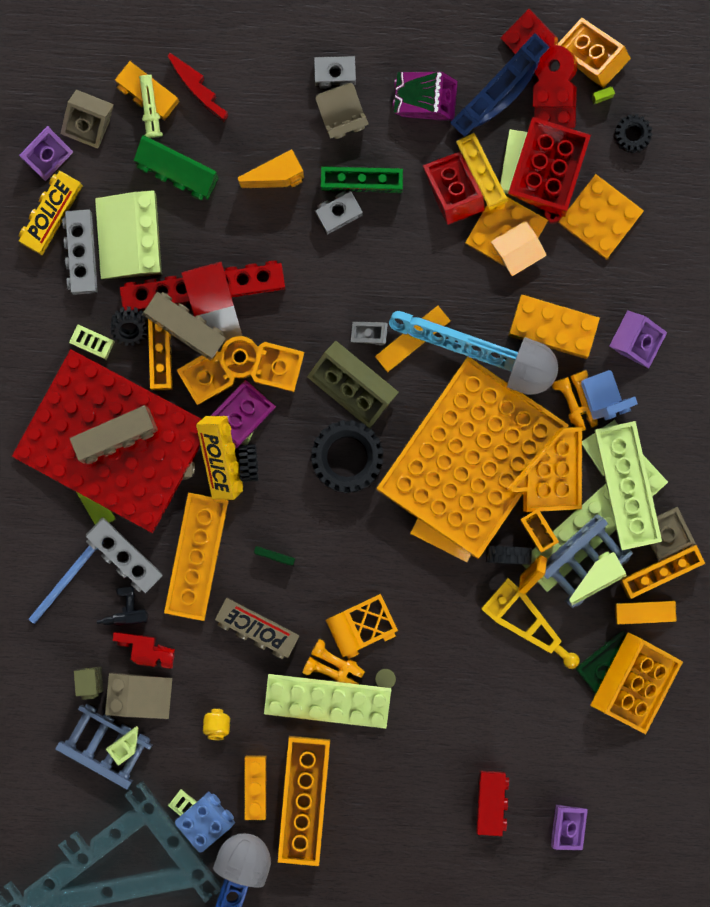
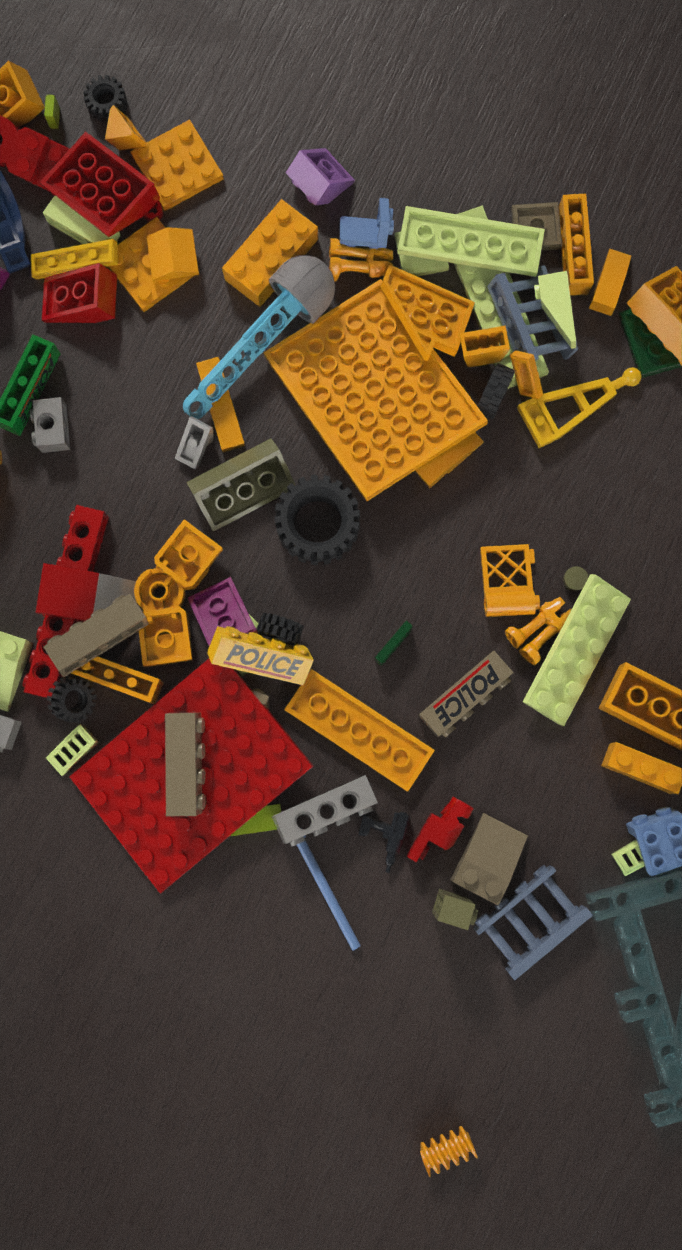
camera: 65 degrees left, 5 degrees down
(124, 746) = (543, 898): yellowish green tile -> none
(216, 724) = (556, 783): yellow head -> none
(609, 161) = (122, 132): none -> light orange slope

